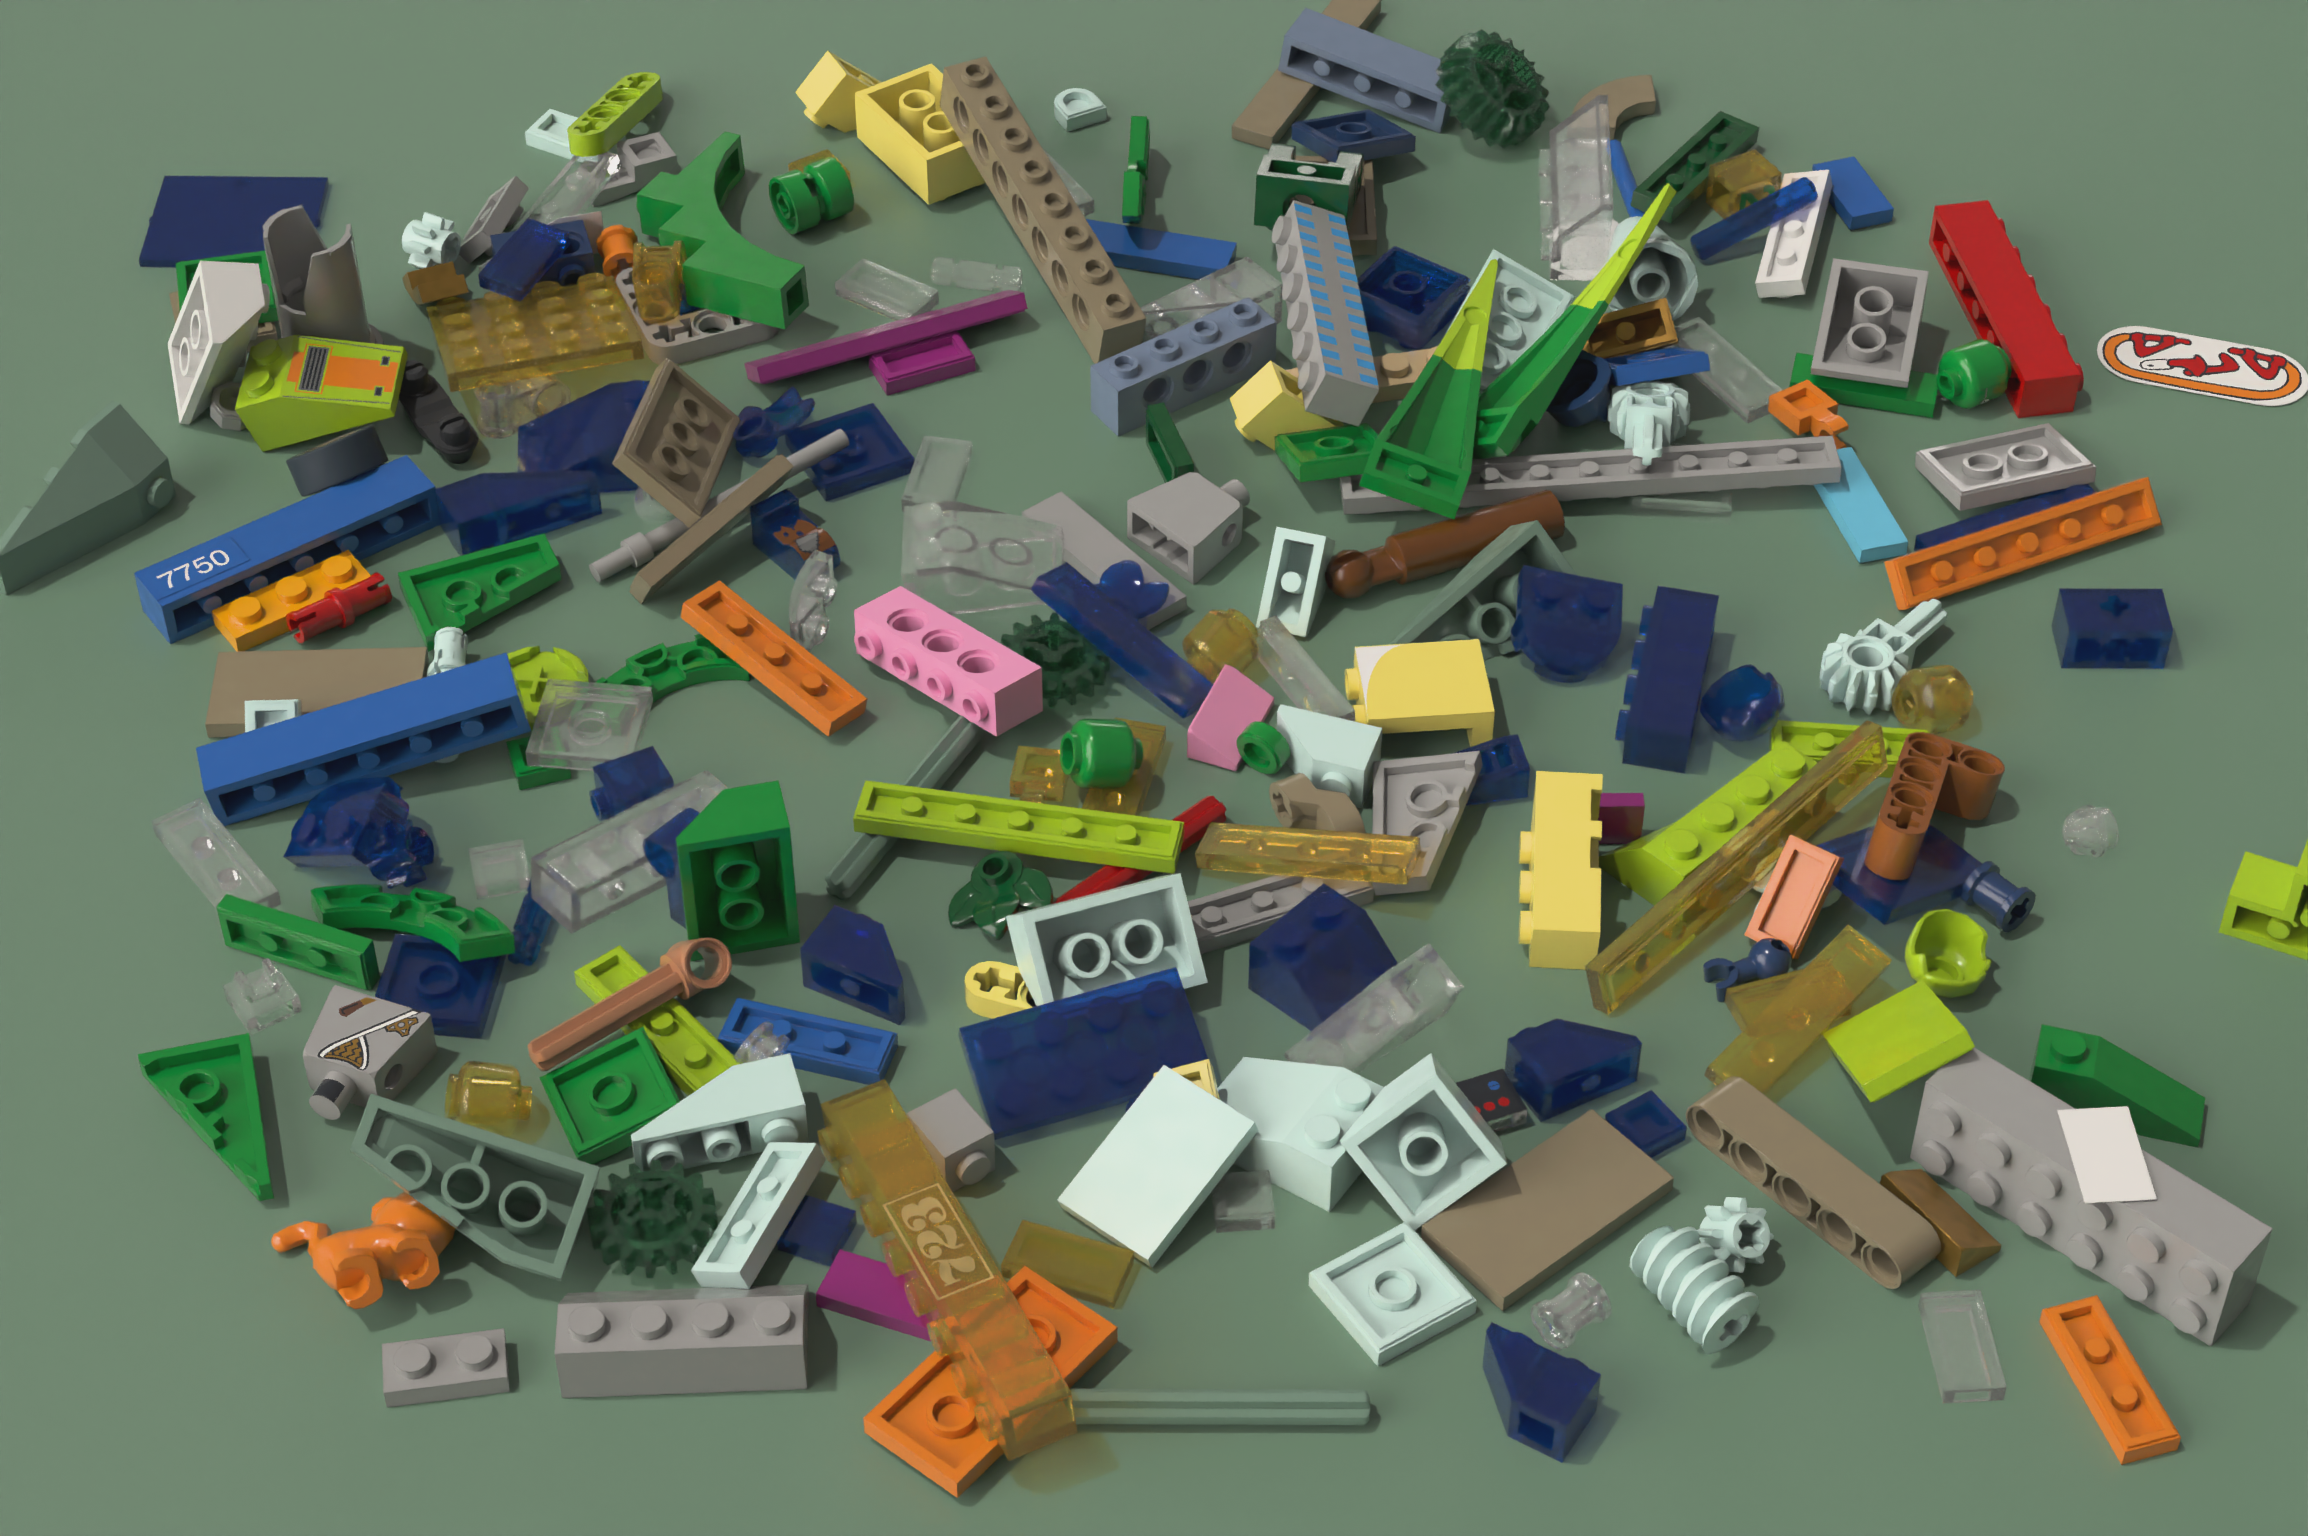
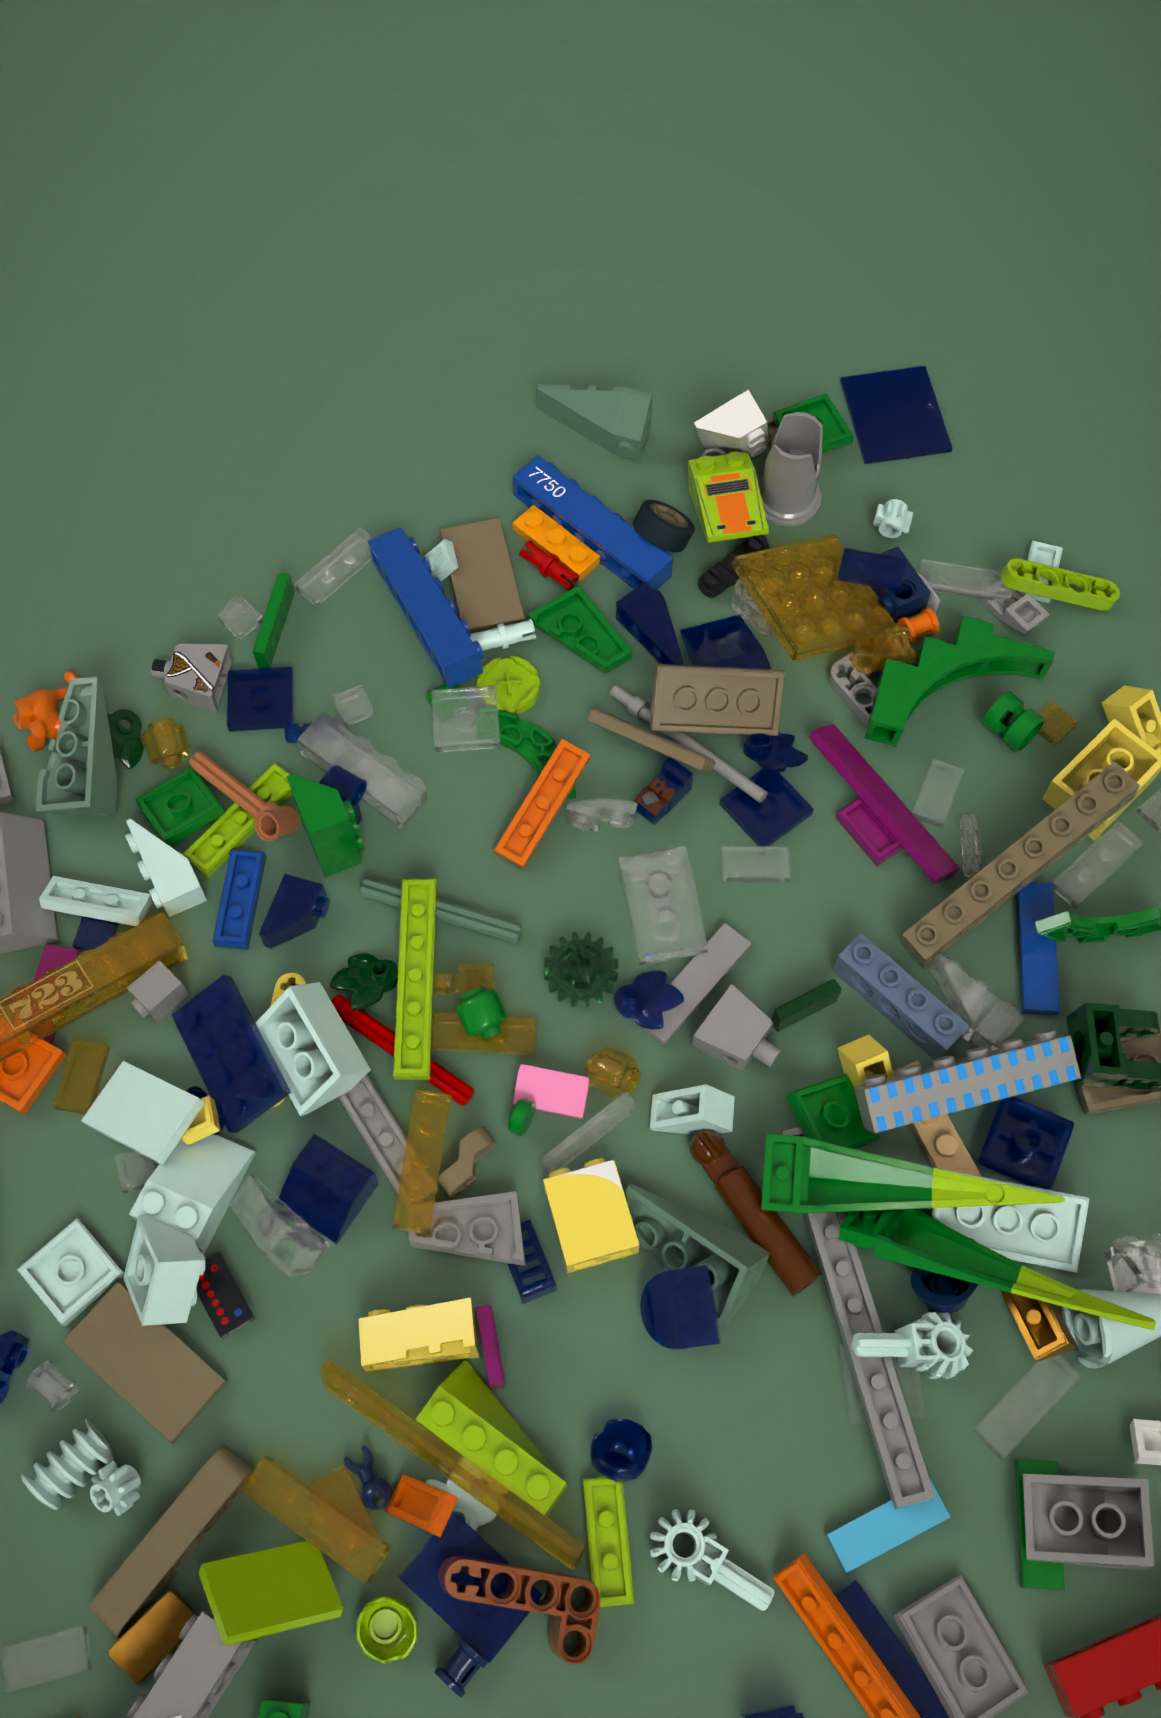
camera: 80 degrees right, 20 degrees up
(219, 1098) = (159, 619): green wing -> none
(346, 823) = (360, 617): clear blue slope -> none
(401, 855) = (341, 658): clear blue gear -> none
(422, 913) = (308, 675): green tile -> none
(434, 283) = (853, 533): pearl gold slope -> none
(496, 215) = (943, 548): light grey plate -> none
(628, 782) = (418, 755): clear blue brick -> none
(652, 1218) = (86, 860): clear green gear -> none
(762, 1044) = (213, 873): clear bush -> none
(948, 660) = (531, 945): bright pink brick -> none
(1123, 639) = (596, 1007): clear blue tile -> none
(1331, 751) = (520, 1162): light aqua slope -> none
(1569, 1065) = (257, 1357): clear blue slope -> none
(1648, 1124) = (221, 1419): clear blue tile -> none
(1656, 365) = (990, 1338): blue tile -> none
(1669, 679) = (646, 1392): clear blue brick -> none
(1808, 409) = (986, 1476): orange plate -> none
(1933, 699) = (661, 1603): clear yellow head -> none
(1973, 373) = (1065, 1619): green head -> none

